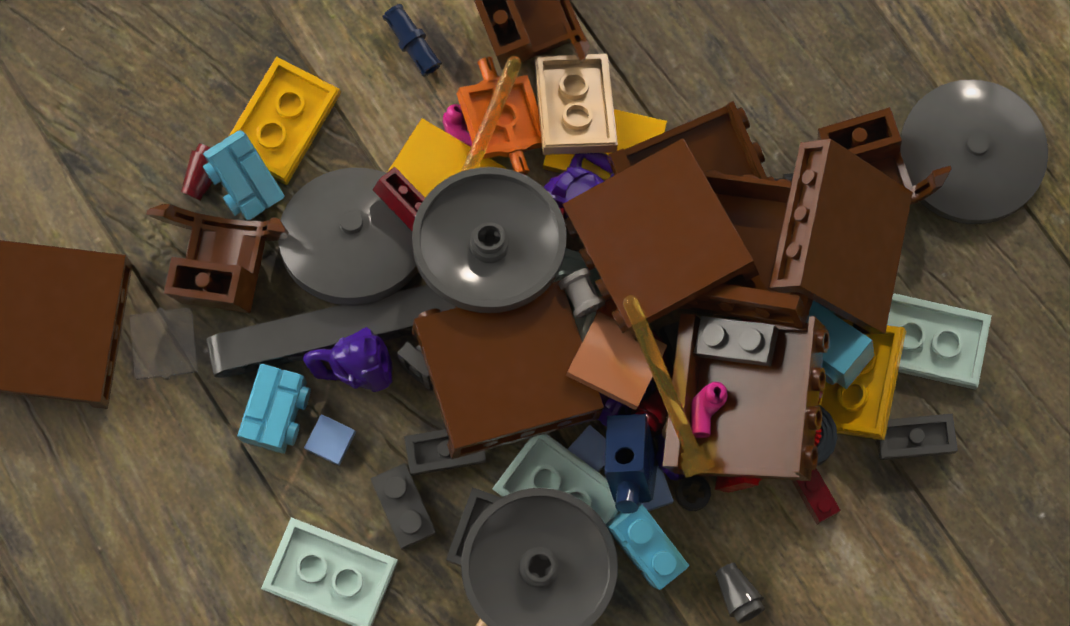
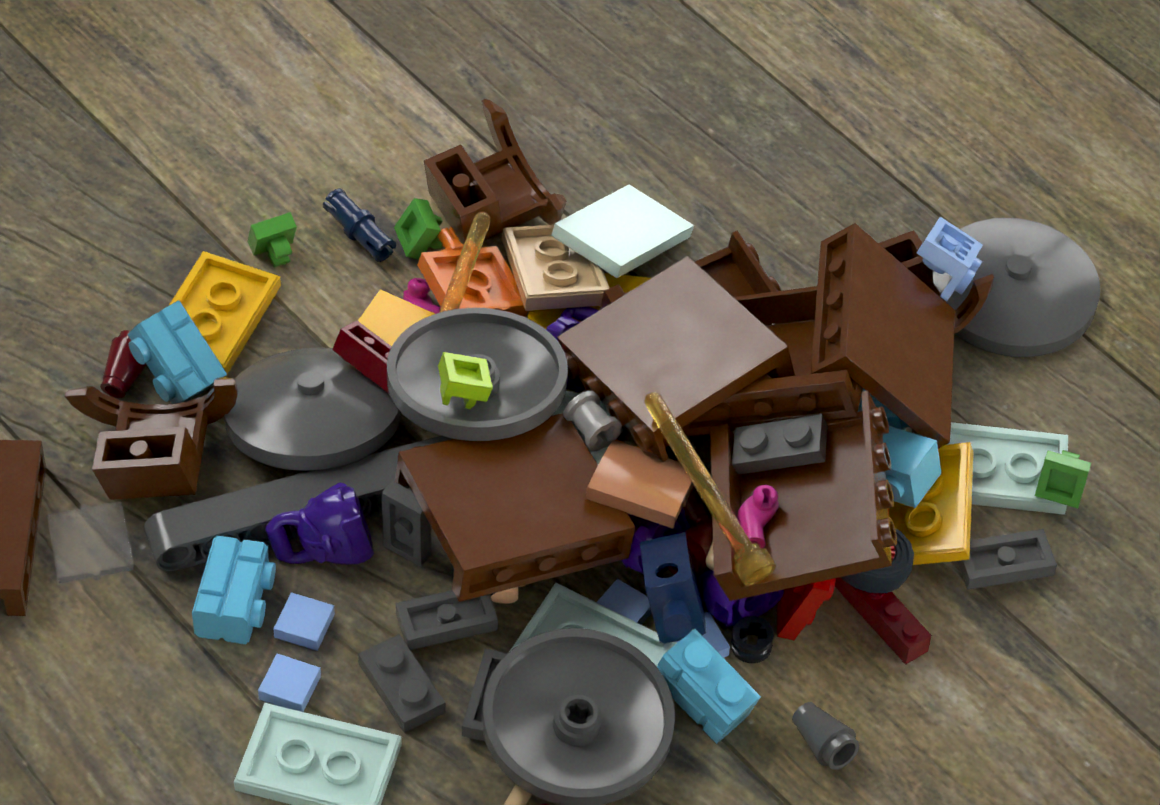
camera: 10 degrees left, 25 degrees down
(313, 498) = (289, 683): none -> light blue tile
(336, 49) = (273, 237): none -> bright green tile
(461, 50) = (418, 229): none -> bright green tile
(475, 256) = (464, 378): none -> lime tile
(637, 70) = (622, 230): none -> light aqua tile
(917, 141) = (951, 252): none -> light blue bracket
(978, 369) = (1063, 478): none -> bright green tile

